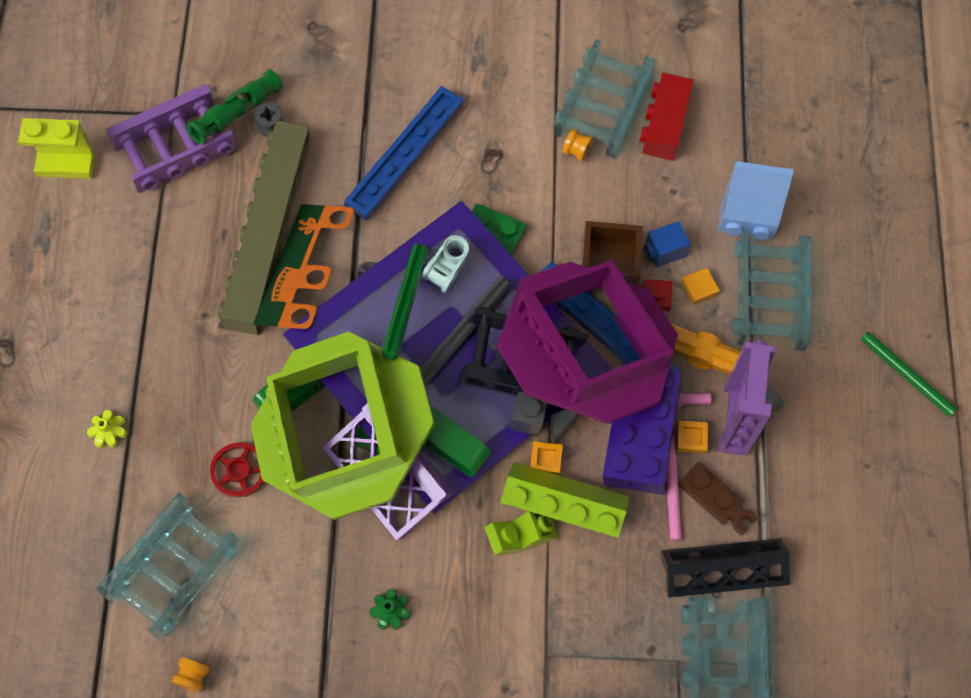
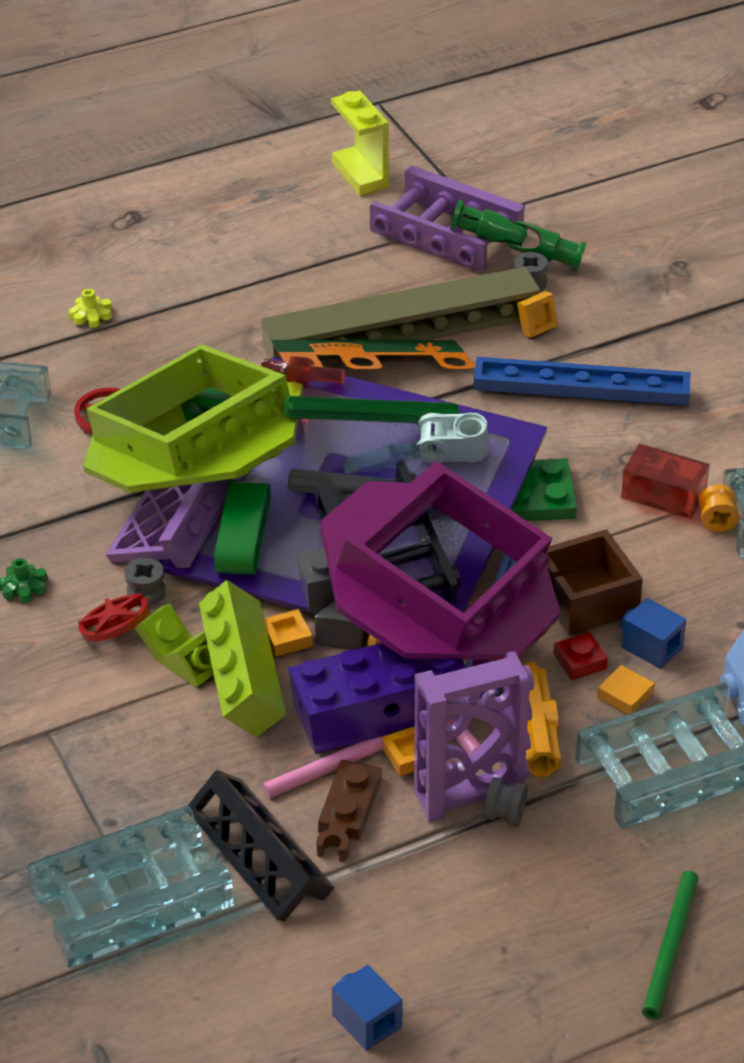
camera: 65 degrees right, 25 degrees down
(320, 140) = (537, 314): none -> light orange plate
(325, 325) = (301, 371): none -> clear red piece
(444, 534) = (145, 577): none -> dark grey wheel
(454, 318) = (382, 458): none -> clear light blue tile
(471, 564) = (114, 617): none -> red wheel
(535, 160) = (664, 480): none -> clear red brick
(889, 566) = (367, 1007): none -> blue brick

